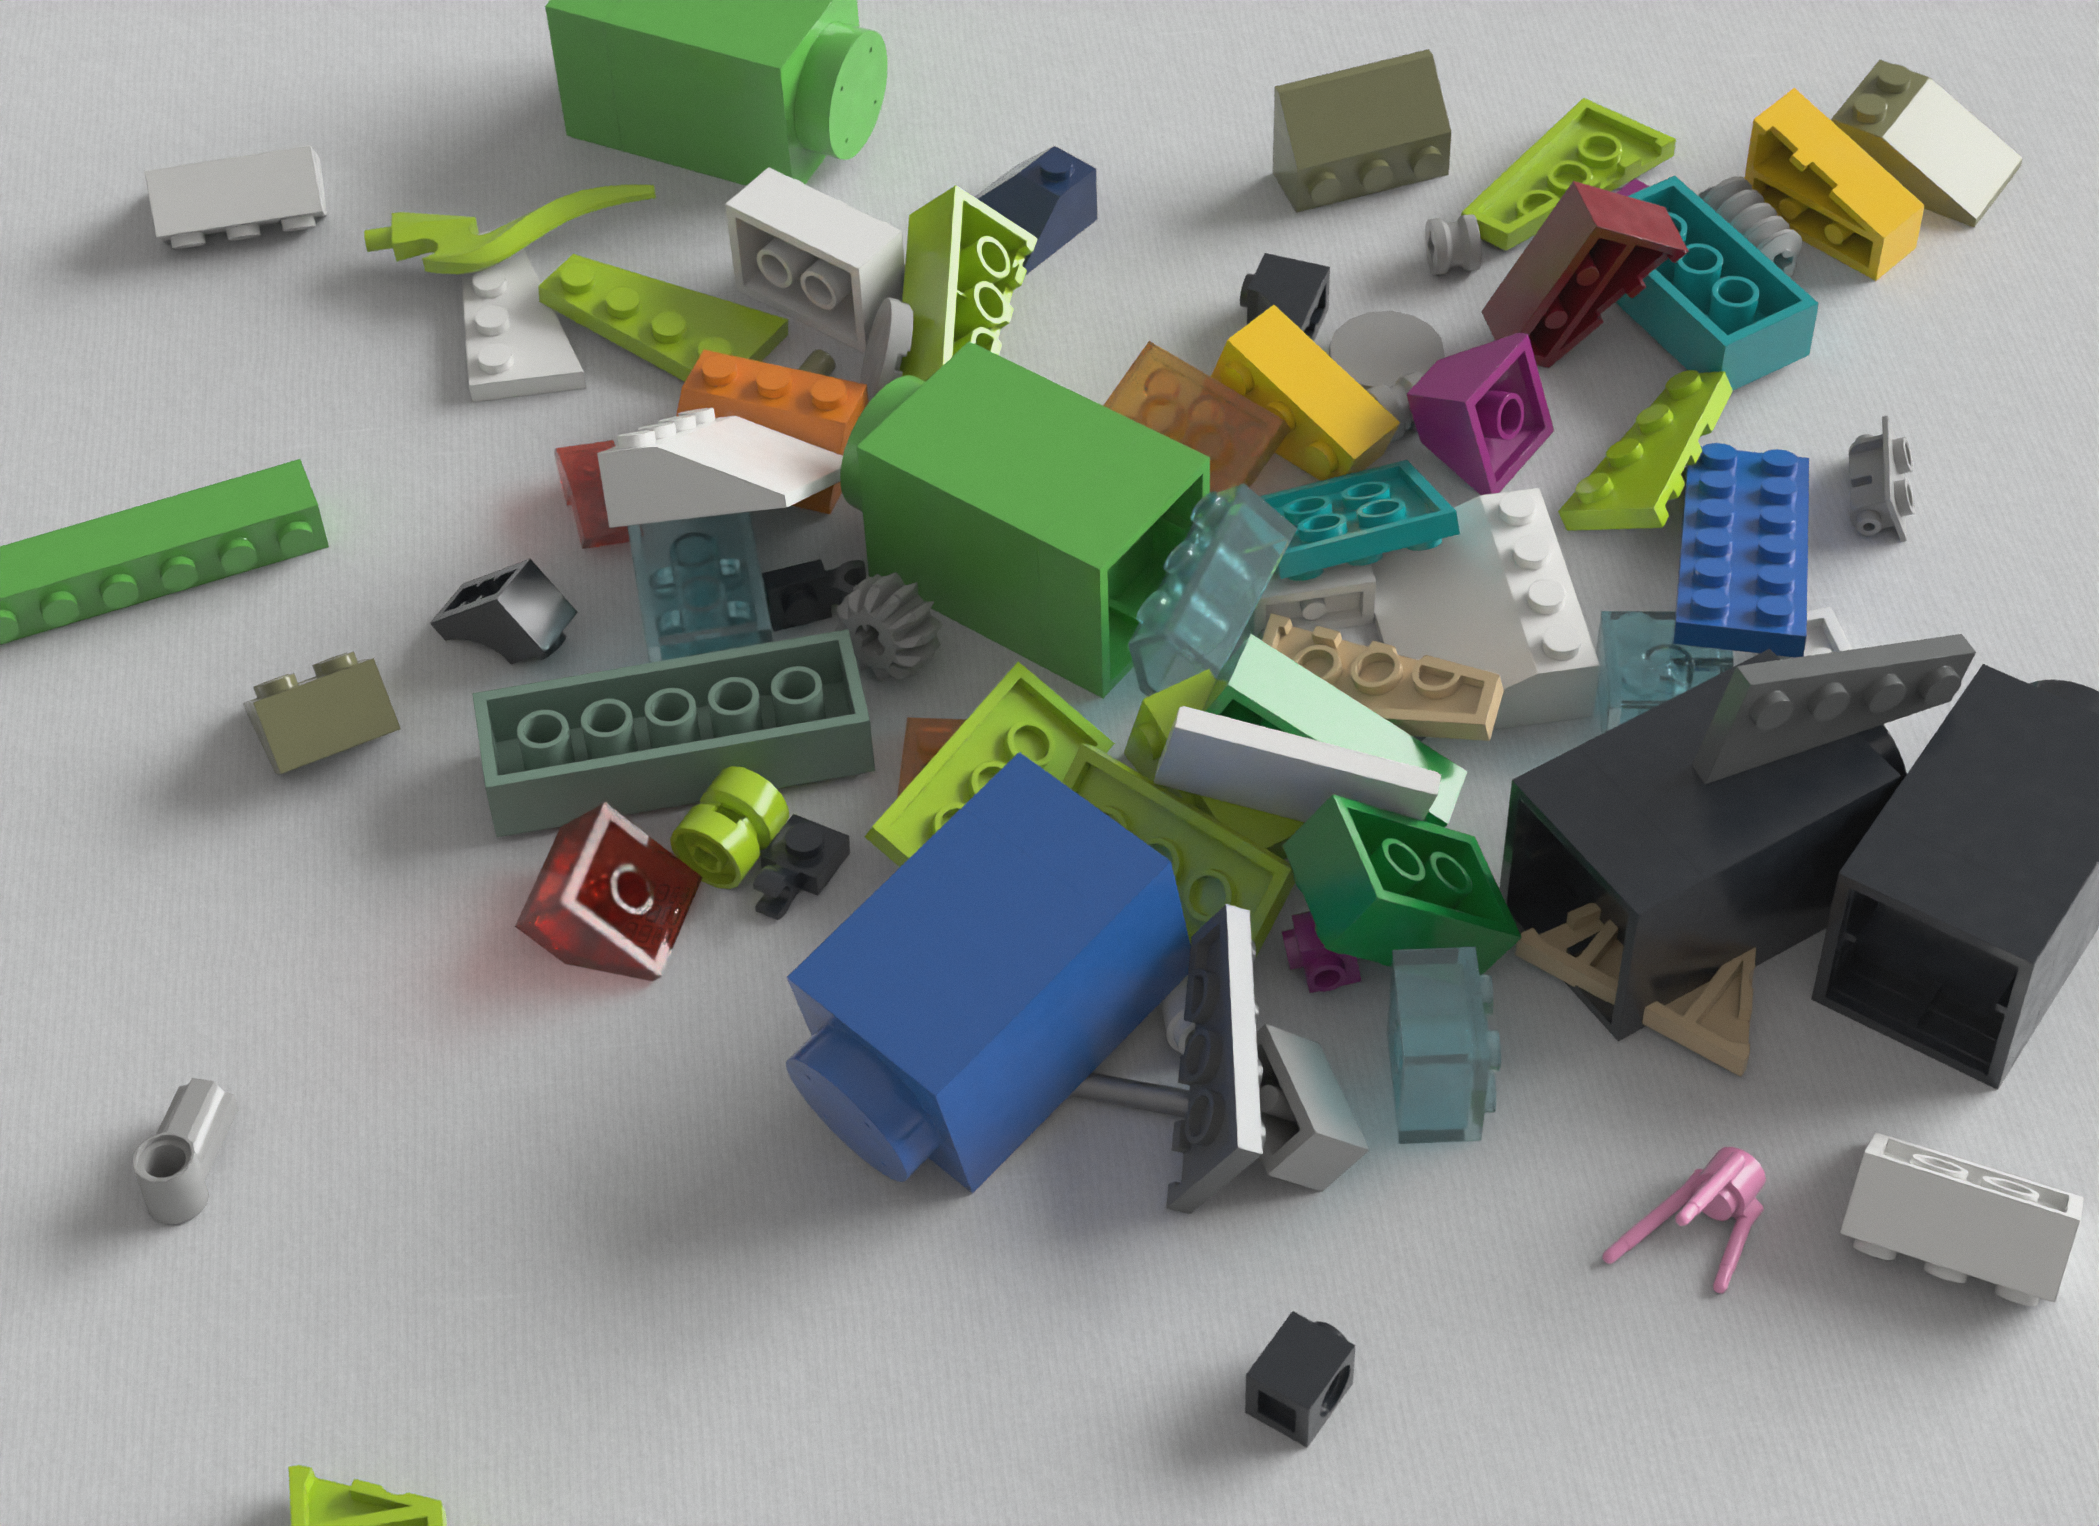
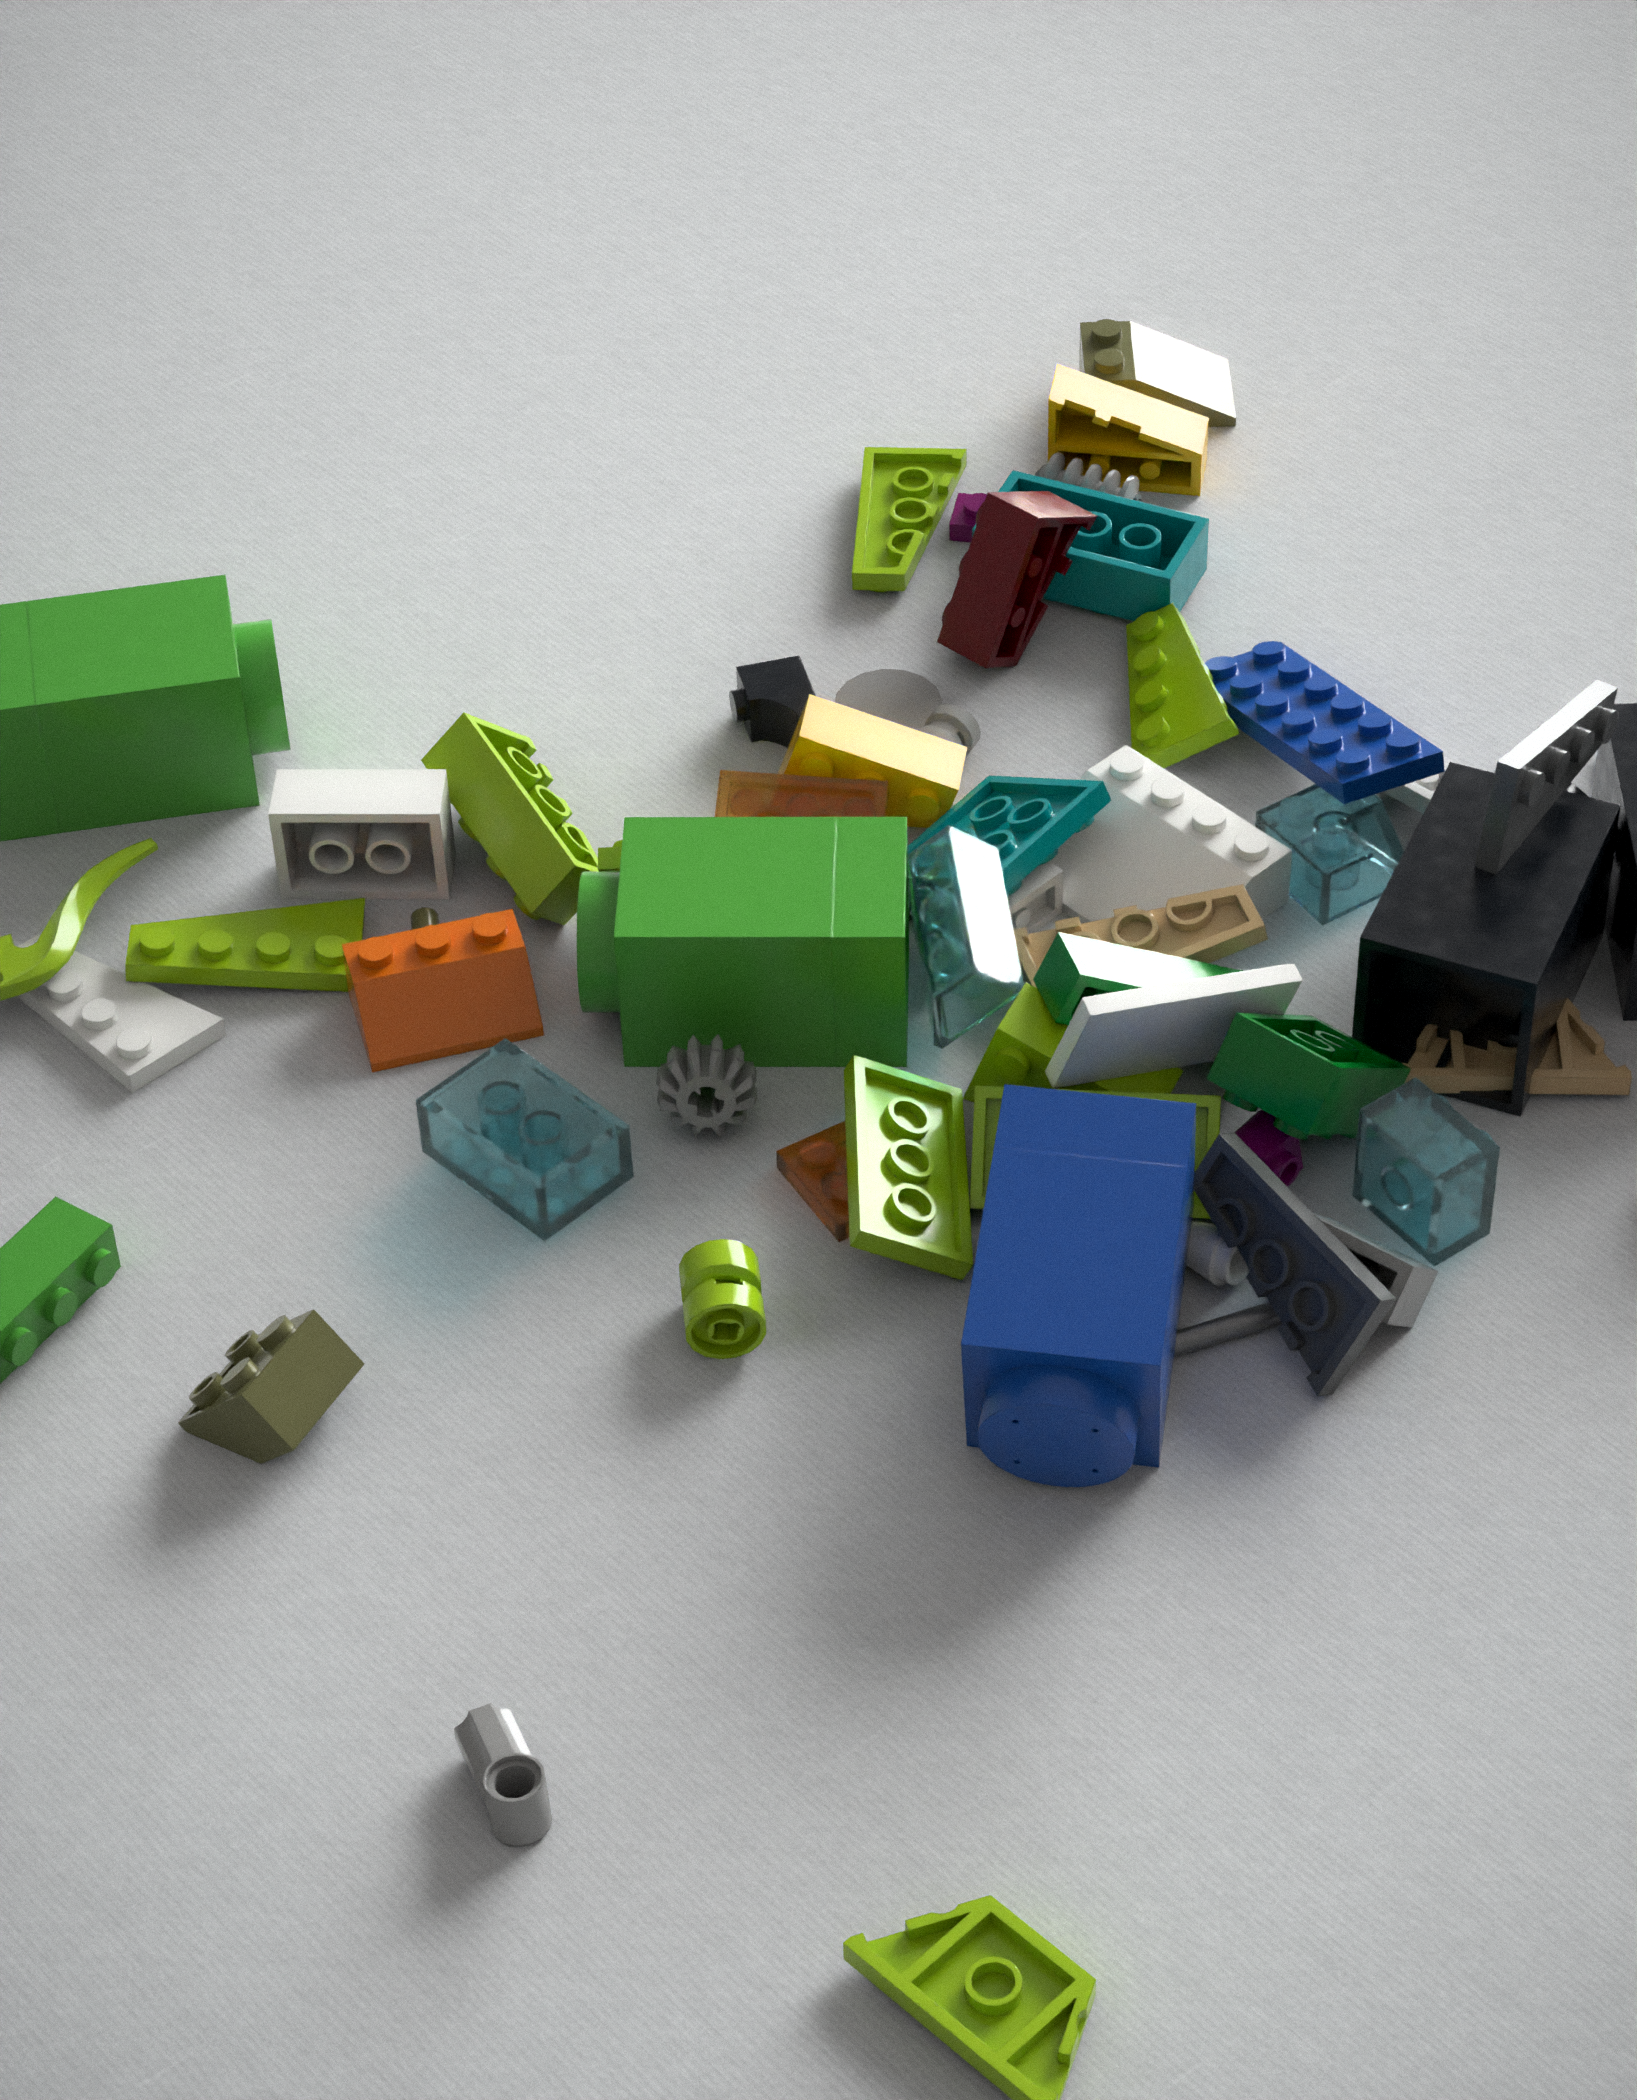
camera: 35 degrees left, 5 degrees down
(508, 611) = (361, 1229): black arch -> none
(584, 491) = (346, 1105): clear red slope -> none
(609, 897) = (668, 1402): clear red slope -> none
(669, 728) = (602, 1252): sand green brick -> none
(709, 469) = (469, 1029): white slope -> none
(798, 858) = (793, 1300): black plate -> none
(807, 591) = (613, 1083): black plate -> none
(887, 344) = (496, 875): light grey tile -> none
(1047, 197) = (492, 689): dark blue slope -> none
(1300, 1378) = (1533, 1452): black brick -> none
(1360, 131) = (720, 544): olive slope -> none
(1453, 244) = (866, 601): light grey wheel -> none
(1483, 411) = (1019, 711): magenta slope -> none
(1879, 489) = (1360, 647): light grey hinge -> none

